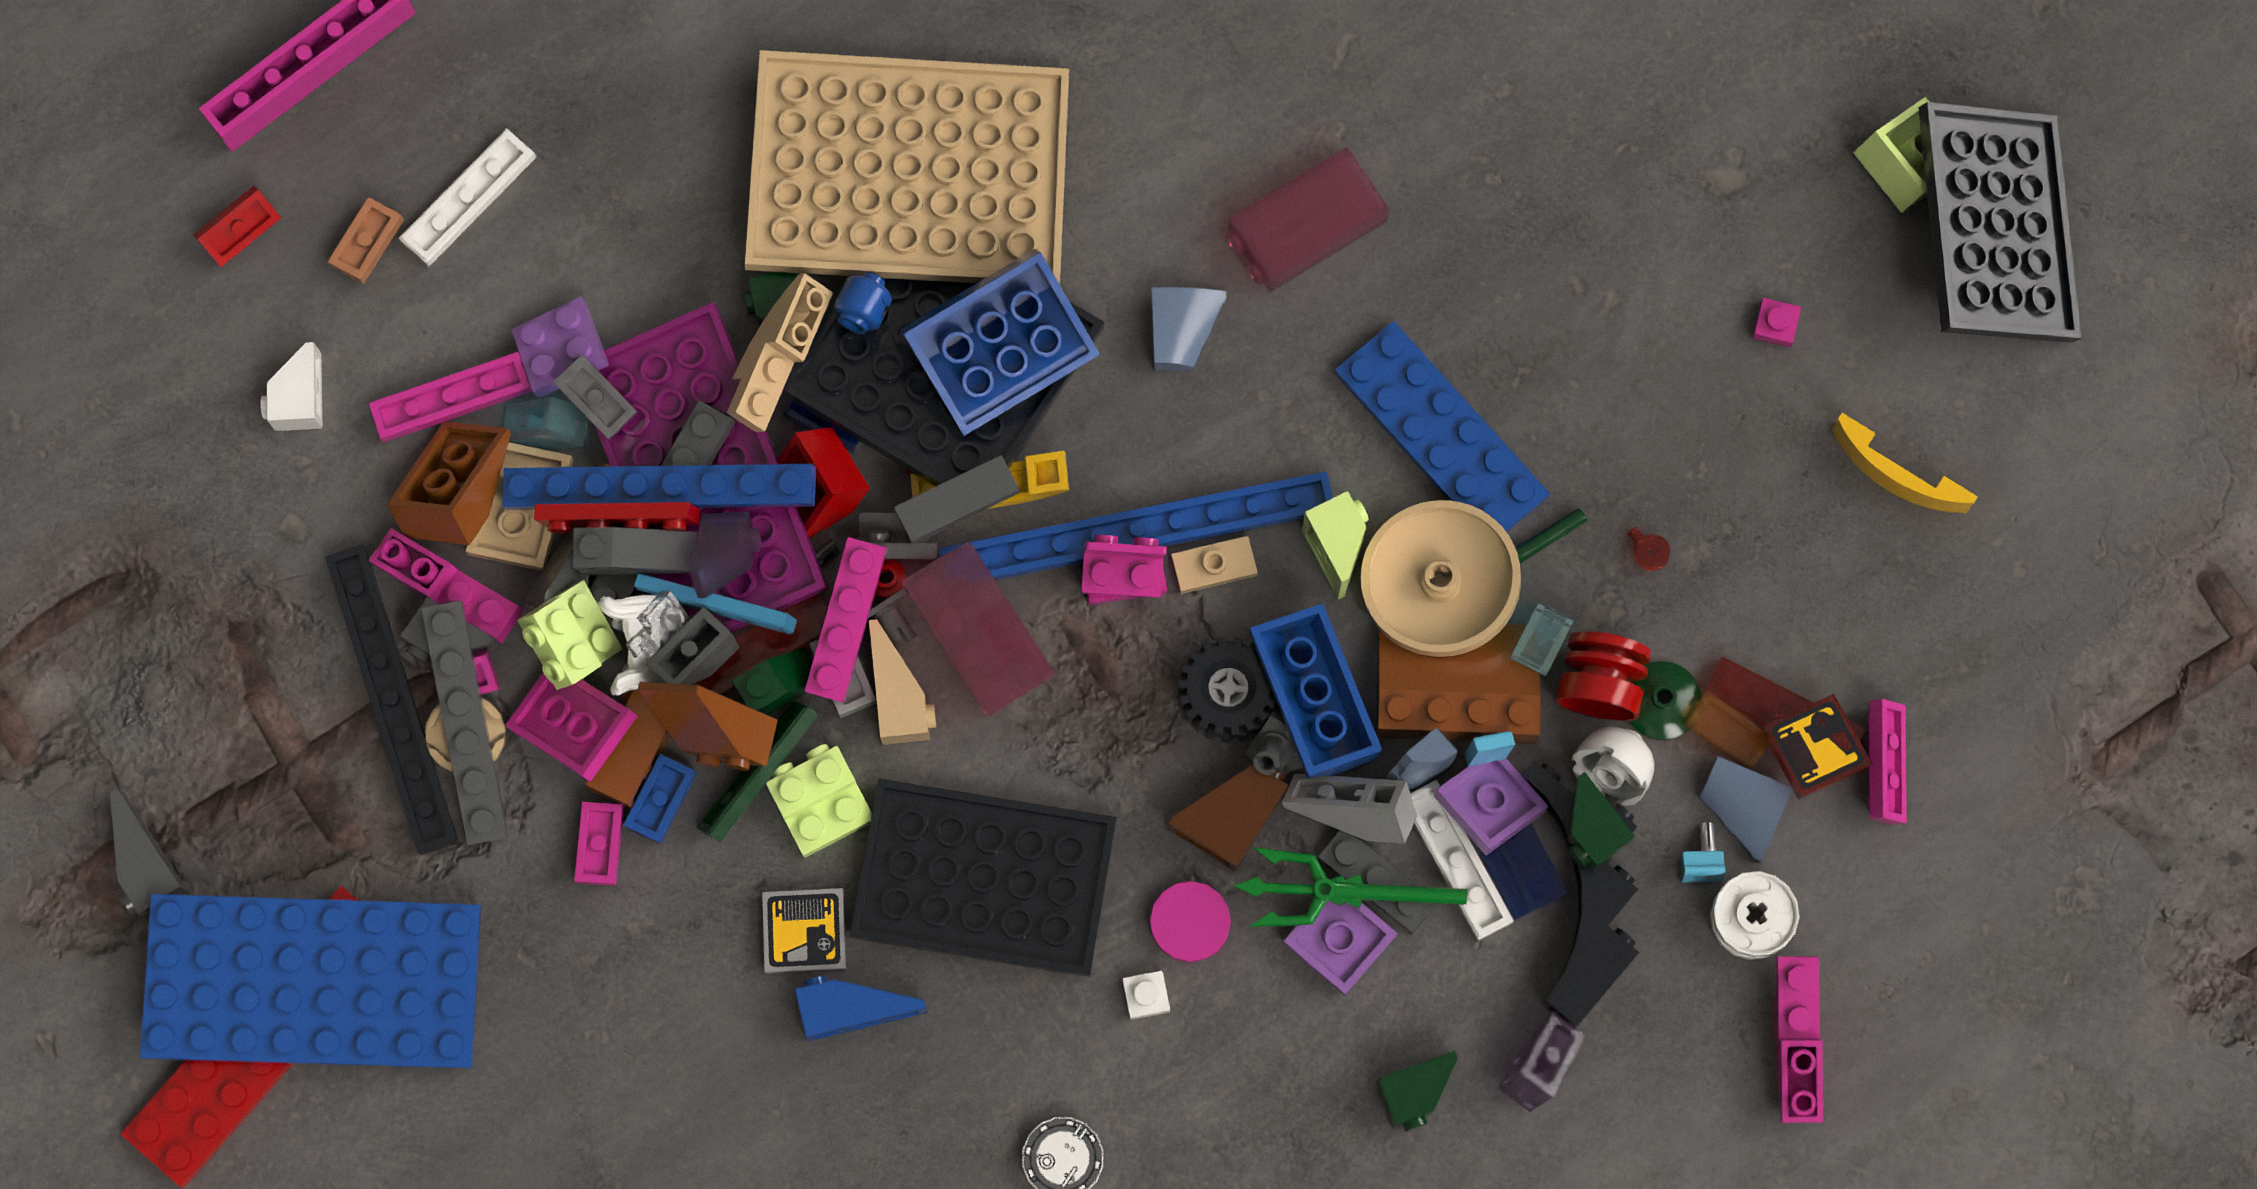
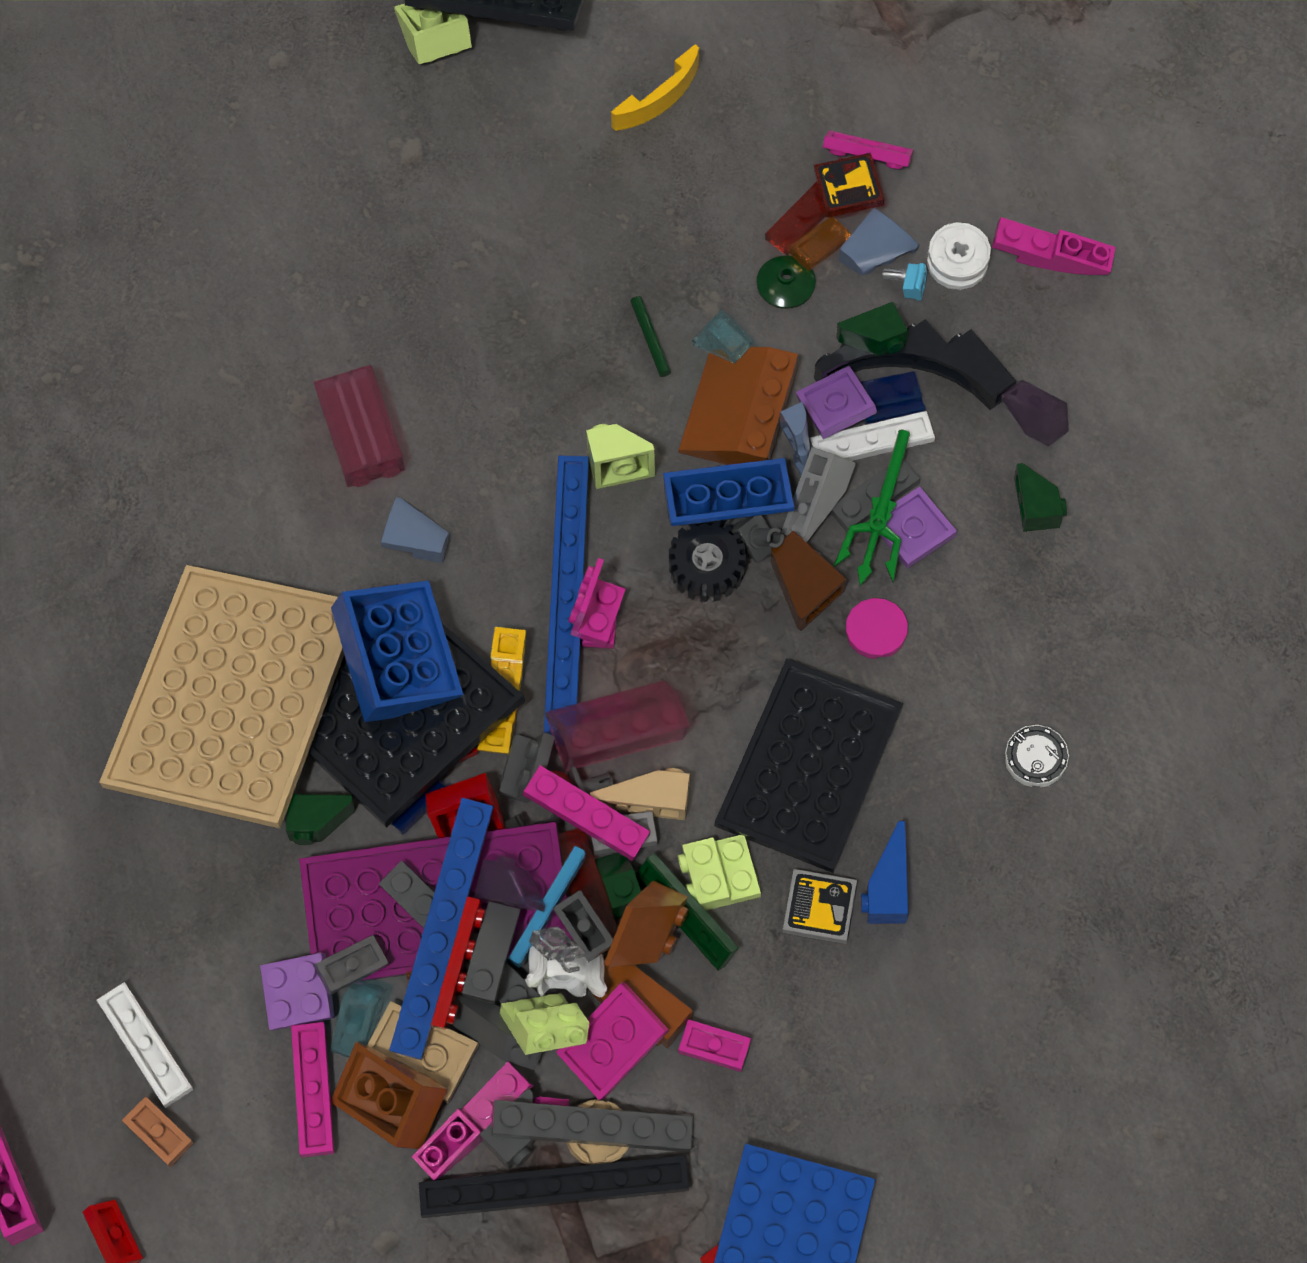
camera: 75 degrees left, 10 degrees down
(296, 392) = (275, 1213): white slope -> none
(660, 799) = (691, 990): blue plate -> none
(774, 349) = (350, 812): tan slope -> none
(862, 303) = (336, 743): blue head -> none
(956, 499) = (514, 708): dark grey tile -> none
(1146, 995) = (924, 671): white plate -> none
(1214, 565) = (608, 545): tan plate -> none
(1439, 428) = (548, 377): blue plate -> none
(1441, 578) = (663, 393): tan dish -> none
(1489, 748) = (799, 387): medium azure tile -> none
(1604, 670) = (769, 306): red wheel -> none
(1616, 763) = (826, 309): white cylinder -> none
(1646, 543) = (670, 265): clear red piece -> none
(1776, 322) = (528, 144): dark pink plate -> none

